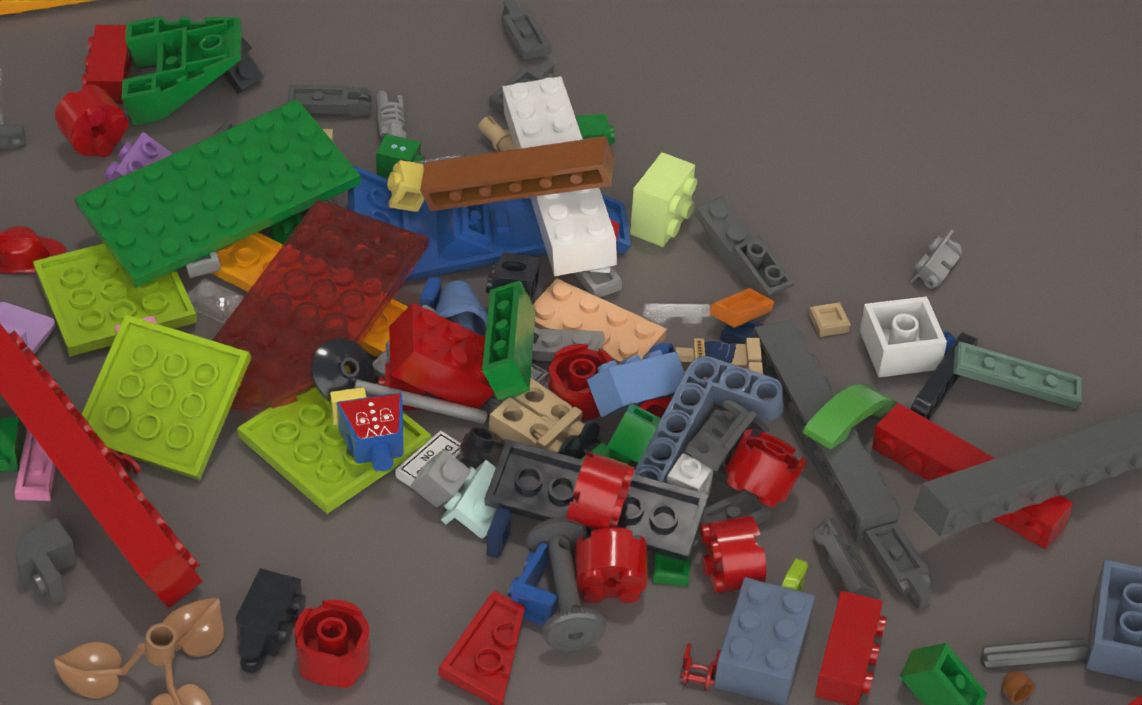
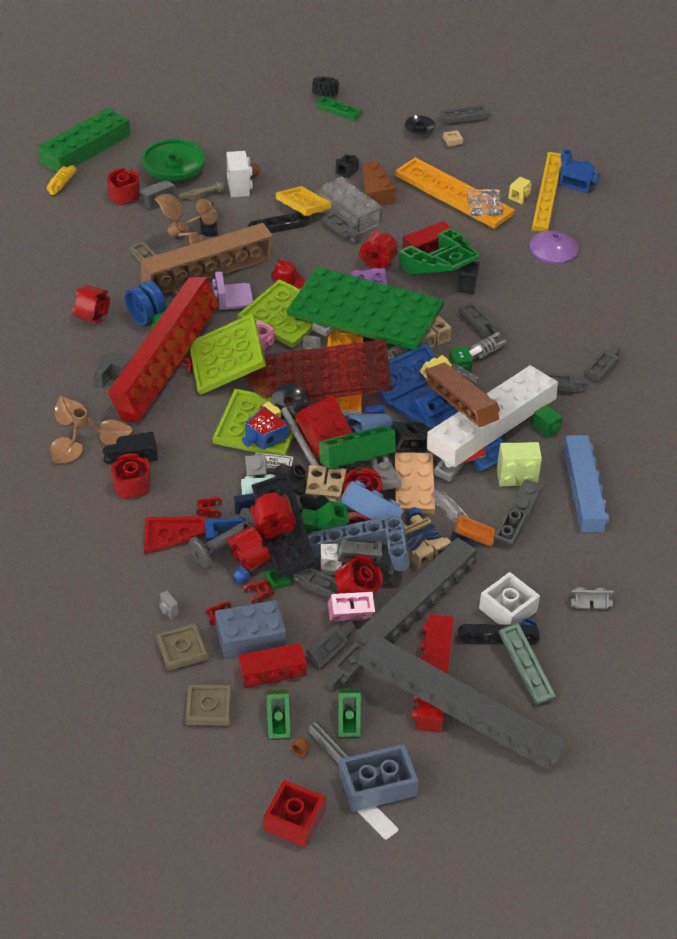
camera: 60 degrees right, 0 degrees up
(477, 585) = (208, 503): none -> red piece
(641, 604) = (241, 575): none -> blue hinge
(674, 598) = (257, 587): none -> red piece
(732, 553) = (291, 591): red brick -> none
(735, 161) = (585, 484): none -> medium blue brick
(796, 575) = (295, 624): lime tile -> none
(804, 505) = (351, 607): none -> bright pink brick
(829, 319) = (503, 568): tan tile -> none
(842, 412) = (430, 596): bright green slope -> none
(988, 599) = (349, 713): none -> green slope

